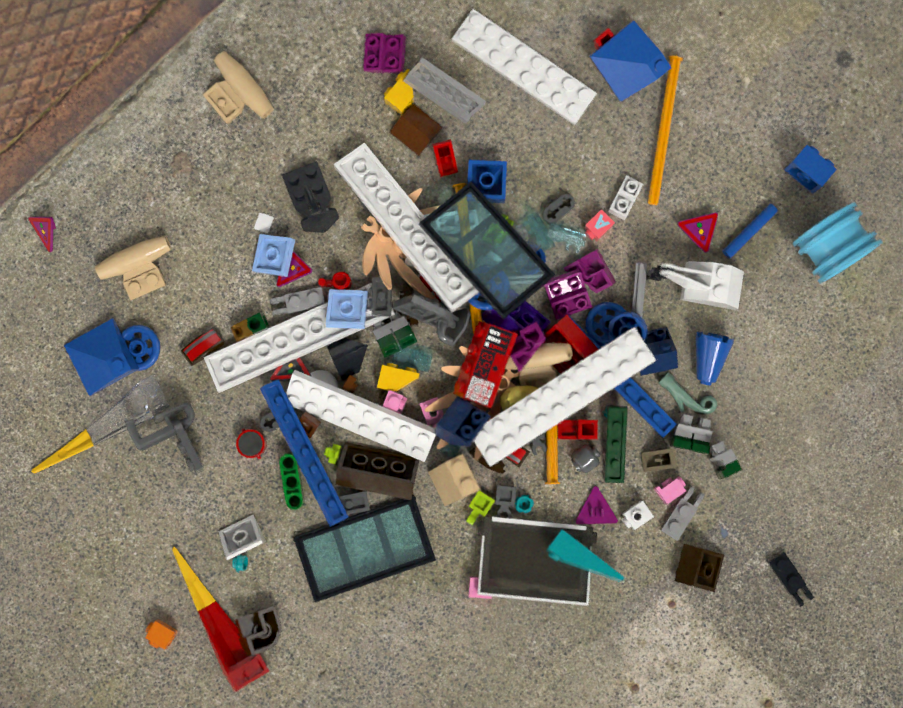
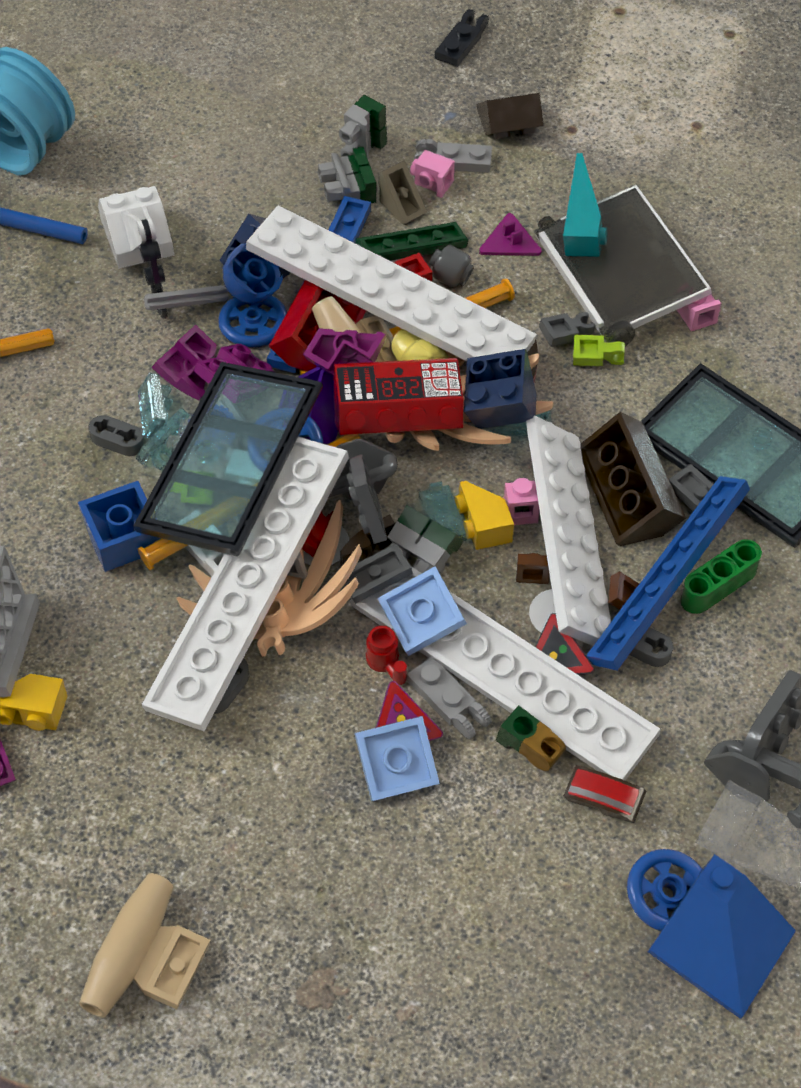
camera: 115 degrees left, 30 degrees down
(137, 265) = (538, 961): tan plate -> none
(251, 443) = (704, 655): pearl dark grey piece -> none
(263, 222) = (350, 810): white sticker -> none
(309, 192) = (269, 746): black plate -> none
(333, 453) = (645, 540): lime plate -> none
(347, 356) = (491, 590): black slope -> none
(416, 129) = (85, 661): reddish brown slope -> none
(429, 419) = (502, 459): bright pink brick -> none
(445, 158) = (108, 601): red slope -> none
(453, 480) = (579, 378): tan slope -> none
(529, 504) = (555, 305): teal plate -> none
(598, 225) = (117, 376): coral brick -> none
(625, 197) = (52, 369): white slope -> none
(636, 515) = (488, 191): white brick -> none
(681, 396) = (302, 183): sand green plant -> none
(700, 229) = (64, 268): piece -> none
(711, 355) = (230, 193): blue cone -> none

